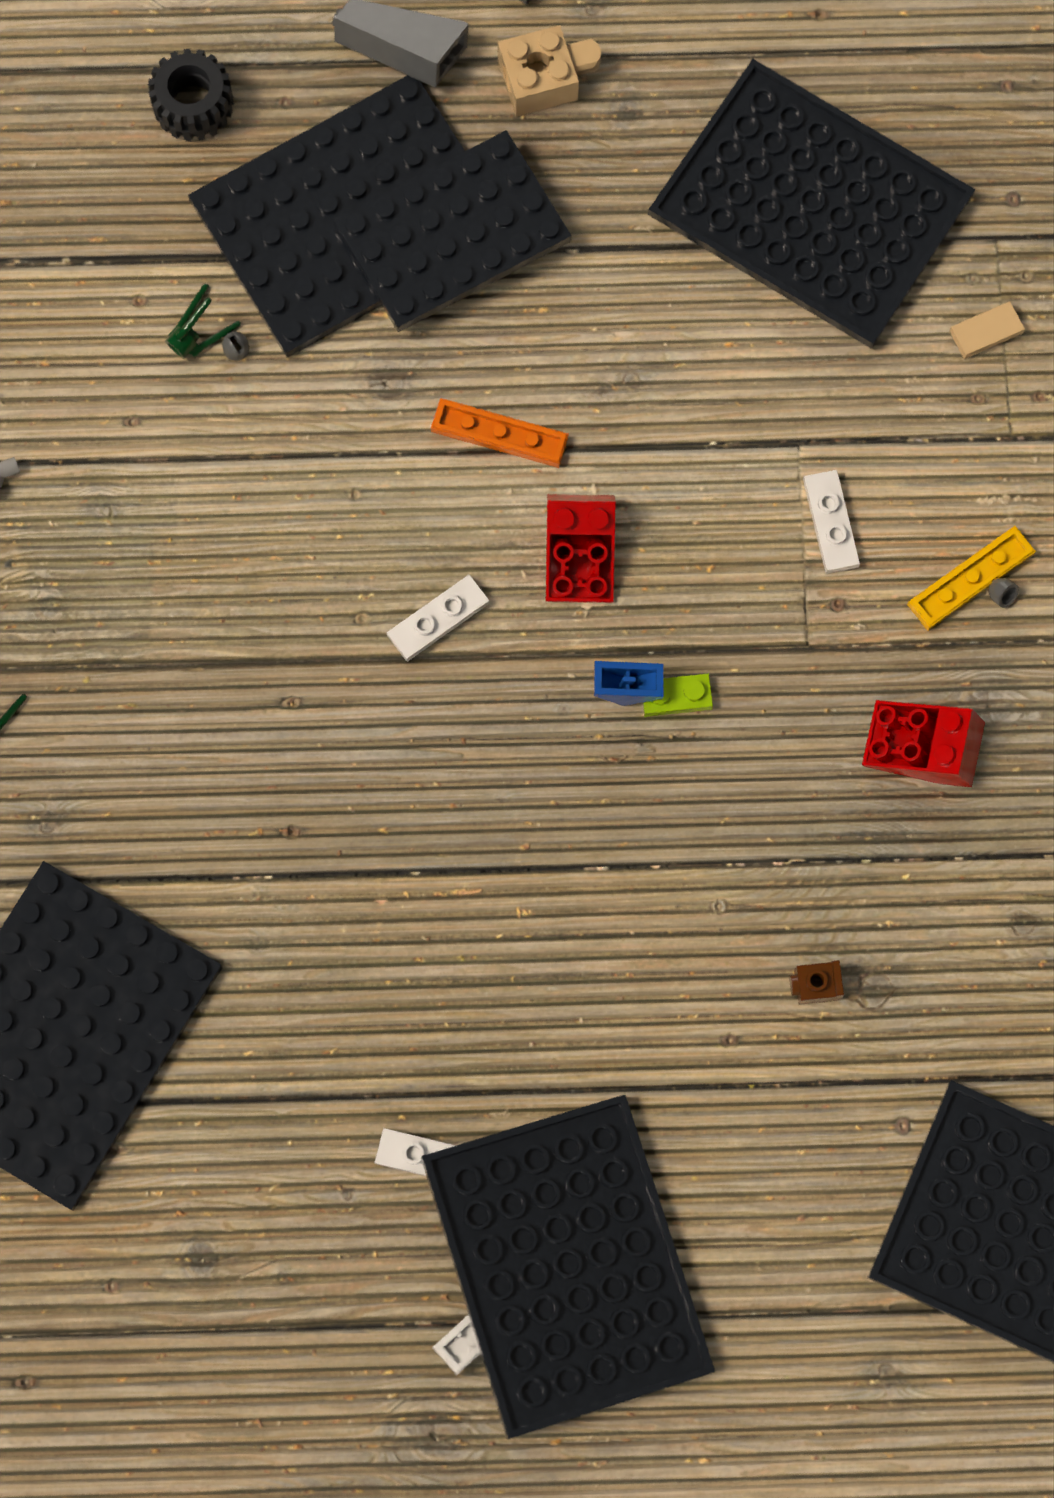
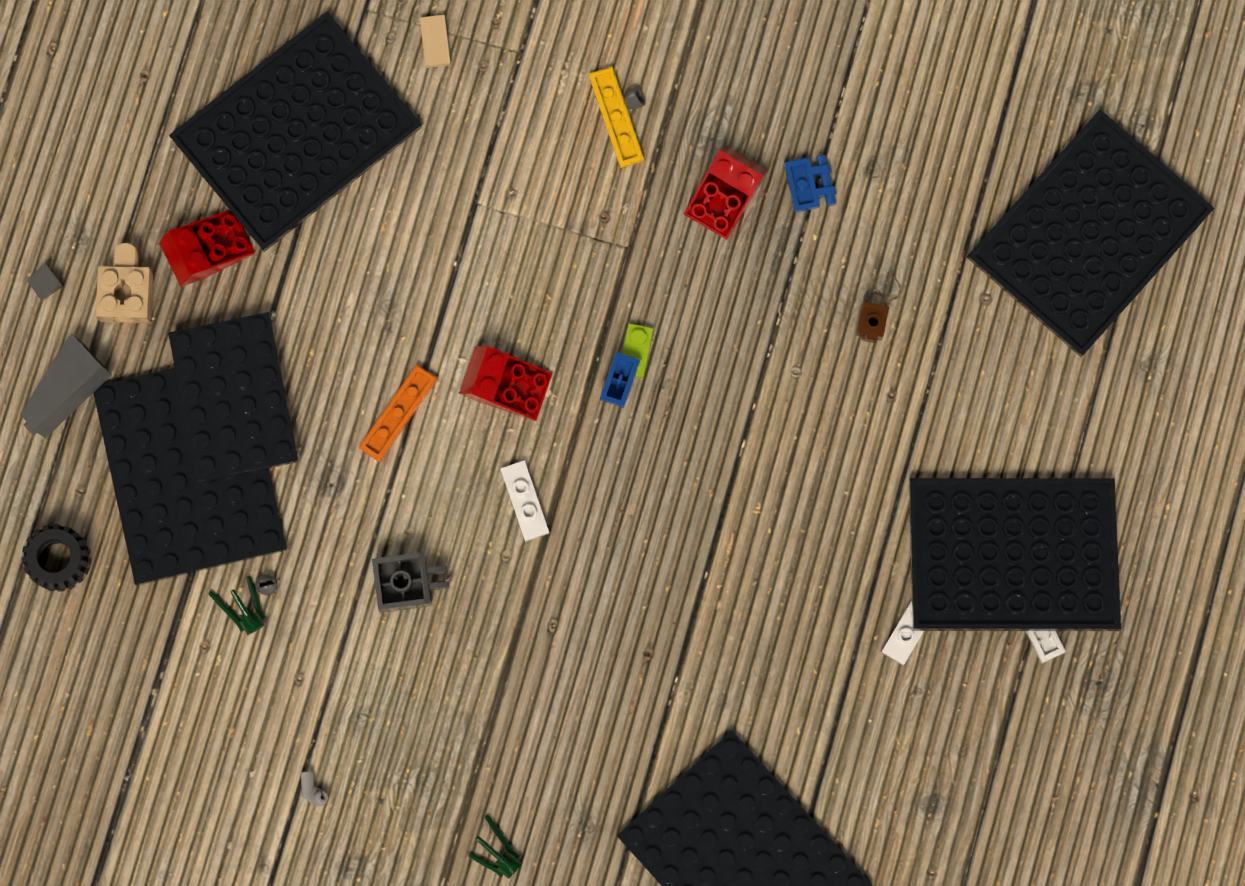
camera: 75 degrees left, 5 degrees up
(287, 518) = (414, 570): none -> dark grey hinge
(629, 144) = (205, 247): none -> red slope
(831, 521) = (543, 200): white plate -> none
(968, 836) = (802, 184): none -> blue plate

